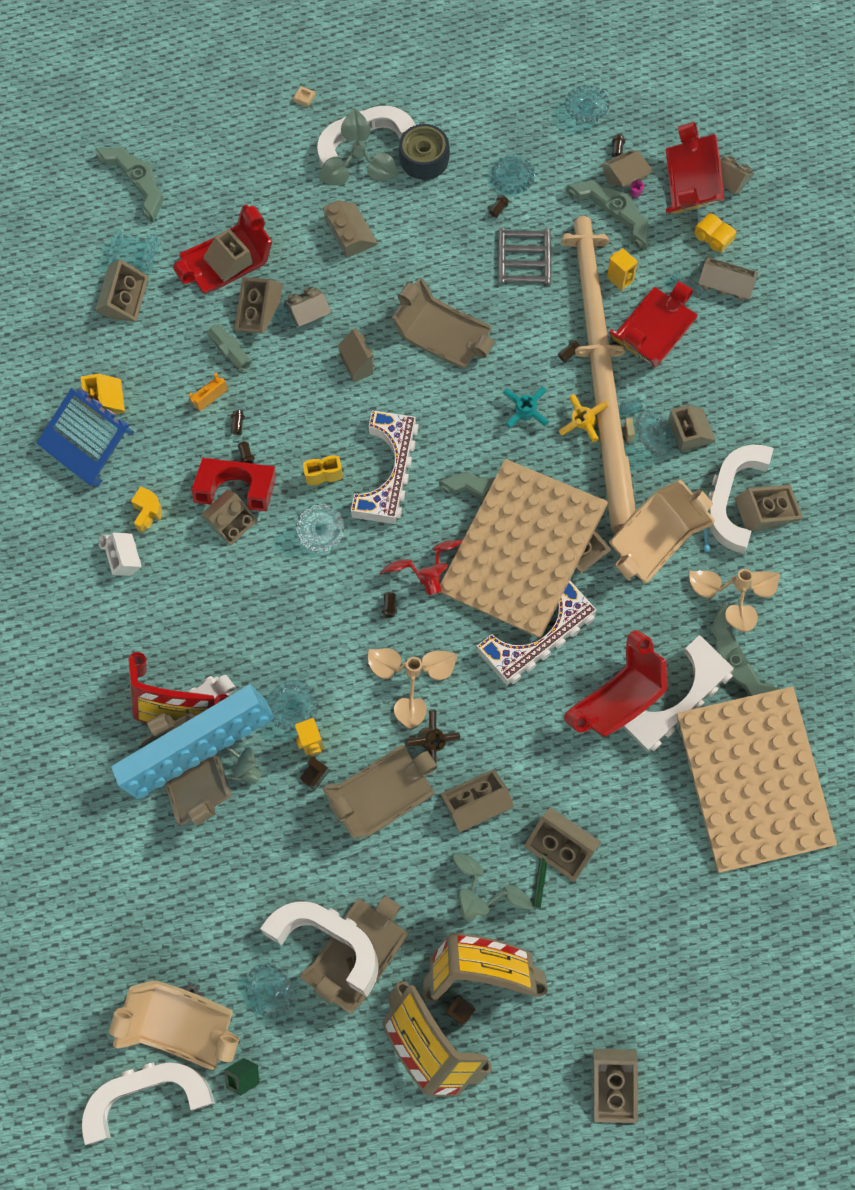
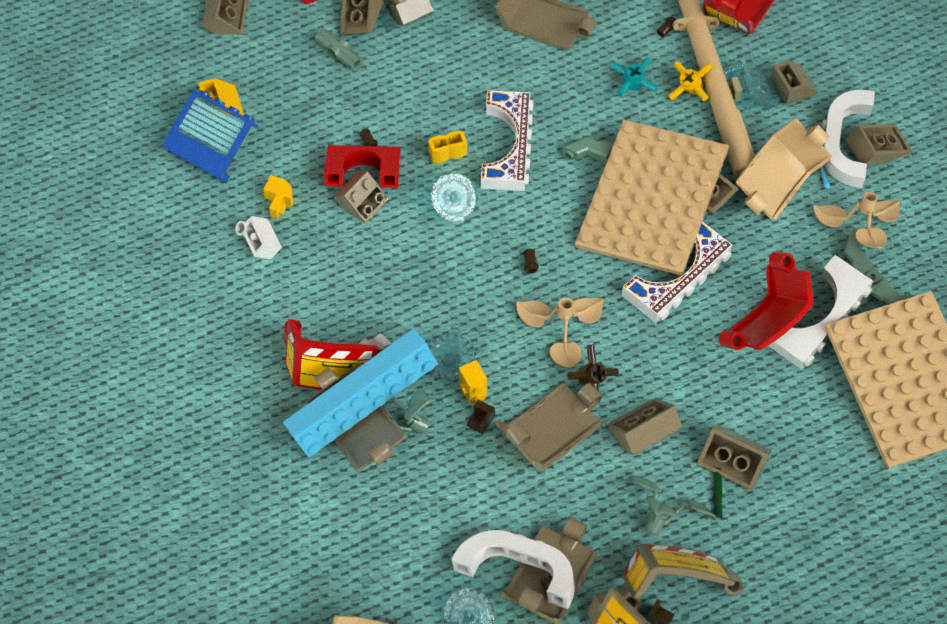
camera: 10 degrees left, 10 degrees down
(208, 393) = (324, 90): light orange hinge -> none
(237, 422) = (356, 109): dark brown pin -> none
(356, 355) = (464, 44): dark tan slope -> none
(432, 573) = (568, 234): red plant -> none

